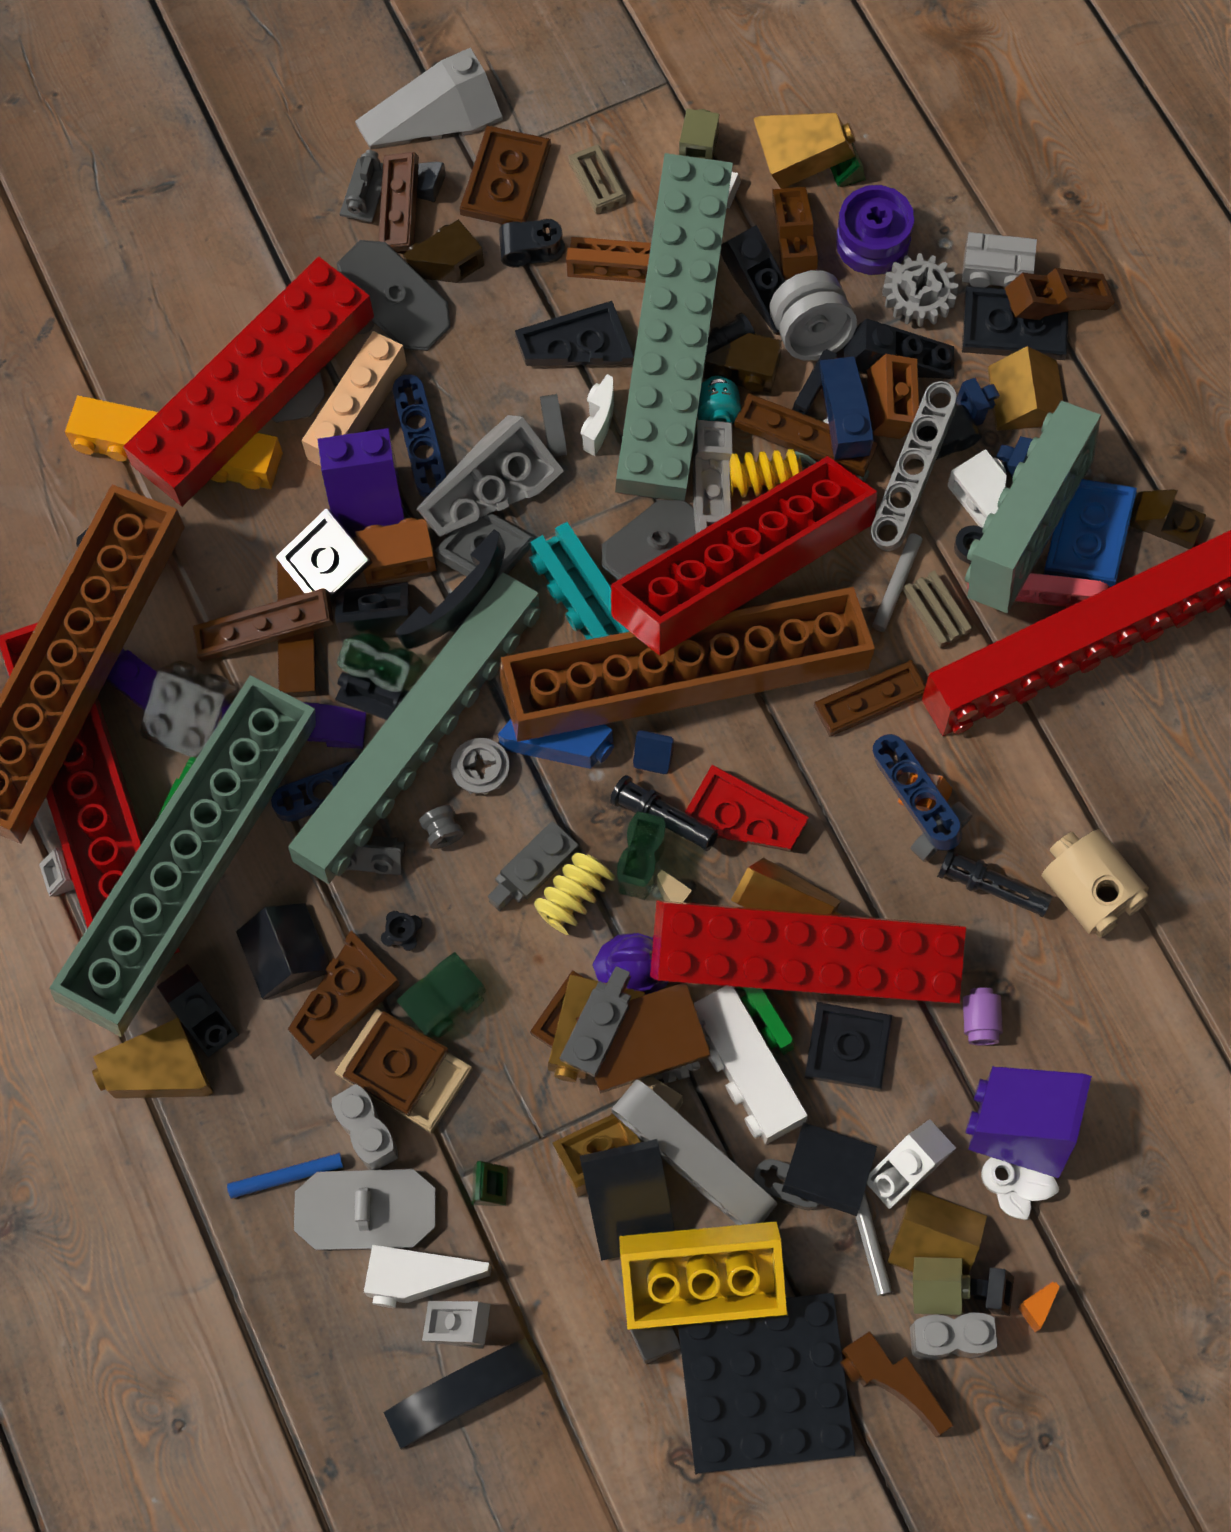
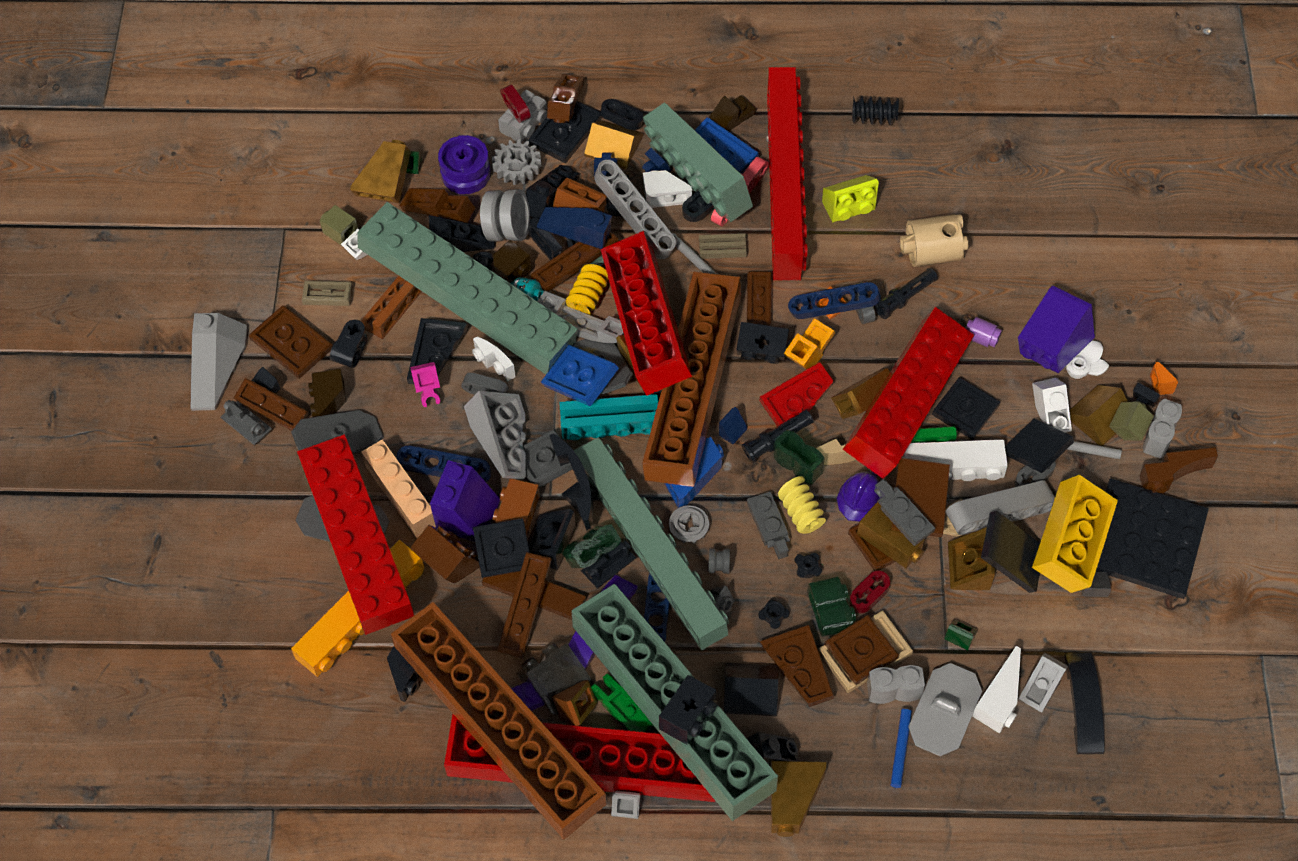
camera: 65 degrees left, 10 degrees down
(139, 860) = (688, 709): none -> black brick
(155, 748) = (575, 703): none -> dark orange slope
(282, 497) = (445, 553): none -> reddish brown slope
(489, 952) = (808, 572): none -> black plate
(494, 1029) = (874, 596): none -> dark red beam
(518, 353) = (426, 380): none -> dark pink plate
(618, 525) = (579, 375): none -> blue tile
(814, 743) = (775, 338): none -> black brick
(823, 795) = (808, 348): none -> light orange brick
(997, 236) = (515, 103): none -> dark red beam
(1080, 381) = (621, 114): none -> black plate
(1108, 737) = (850, 198): none -> neon yellow slope

